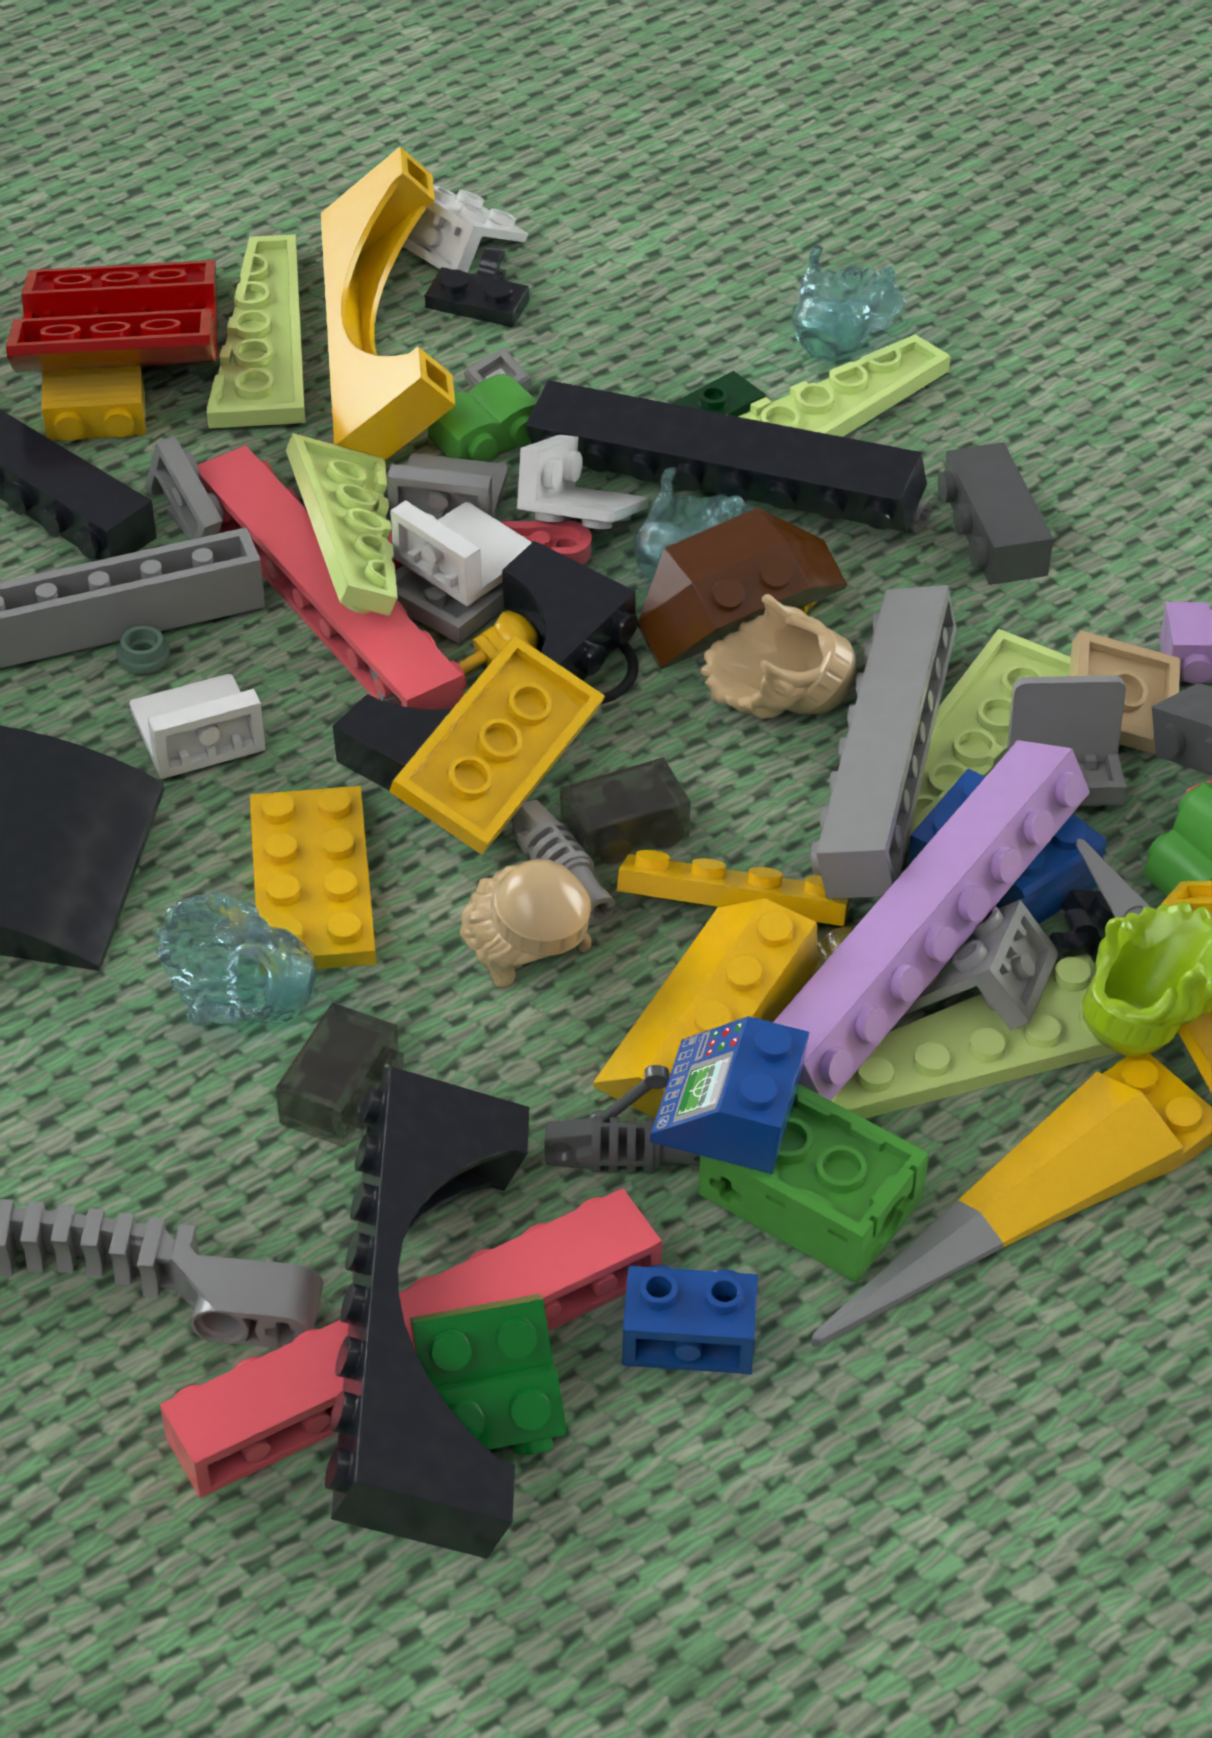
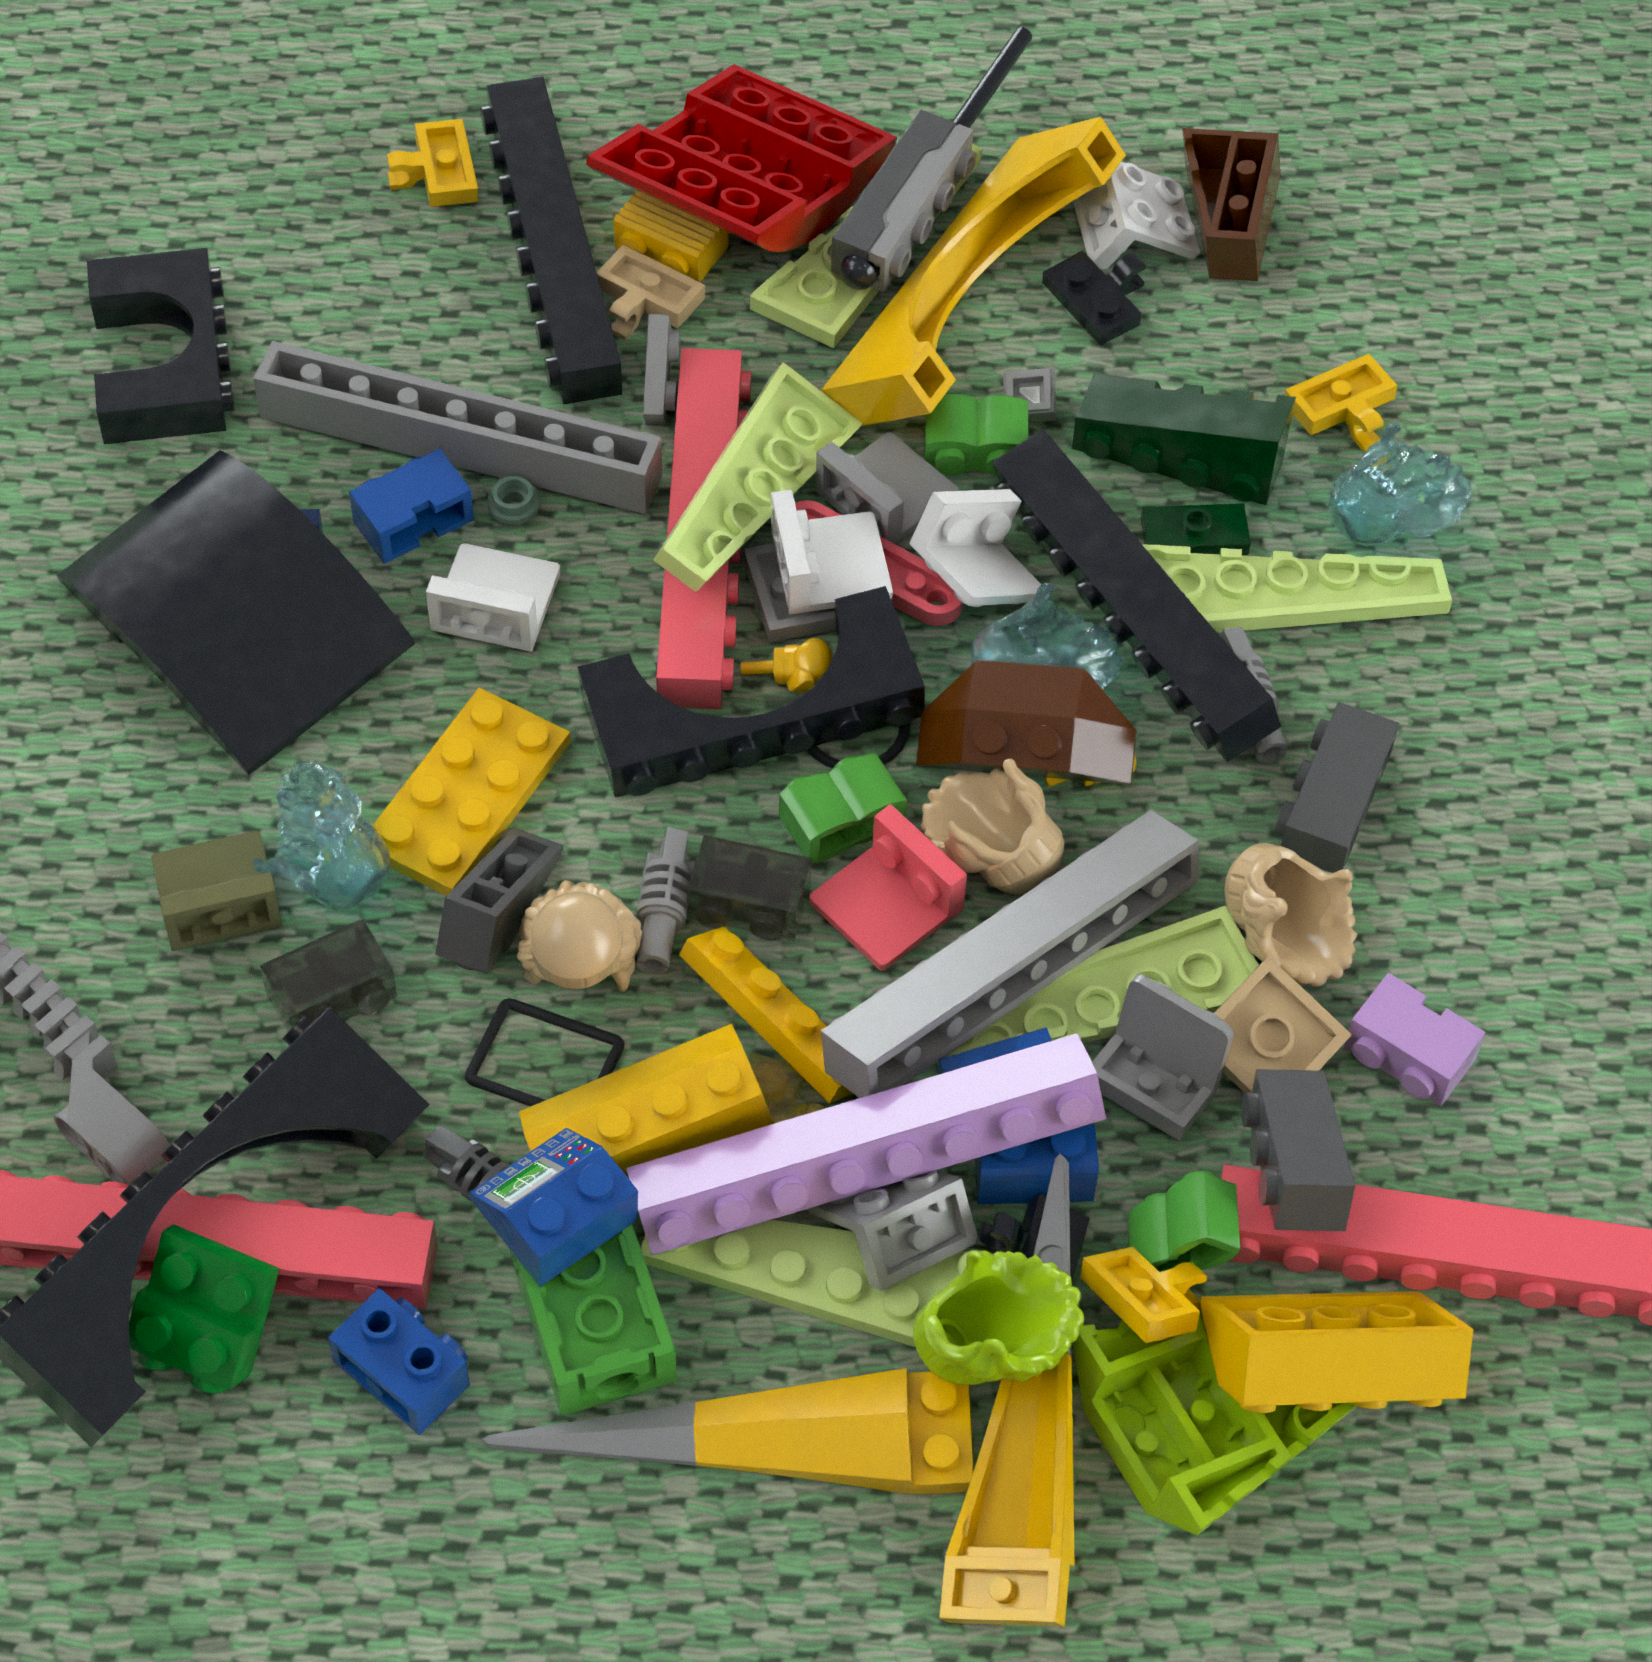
camera: 35 degrees right, 10 degrees up
(60, 688) = (410, 503): none -> blue brick
(114, 446) = (646, 287): none -> tan plate
(166, 1066) = (215, 891): none -> olive bracket
(278, 274) = (914, 185): none -> piece
(425, 938) = (488, 904): none -> dark grey slope
(497, 744) = (681, 765): yellow plate -> none
(525, 176) = (1233, 196): none -> reddish brown wedge
(551, 1001) = (546, 1016): none -> black piece
(639, 717) = (838, 807): none -> bright green brick
(655, 1077) = (519, 1145): dark grey hinge -> none
(656, 339) = (1187, 434): none -> dark green wedge
(734, 268) = (1345, 395): none -> yellow plate
(741, 749) = (892, 892): none -> coral bracket
(1050, 600) = (1292, 912): none -> tan hair

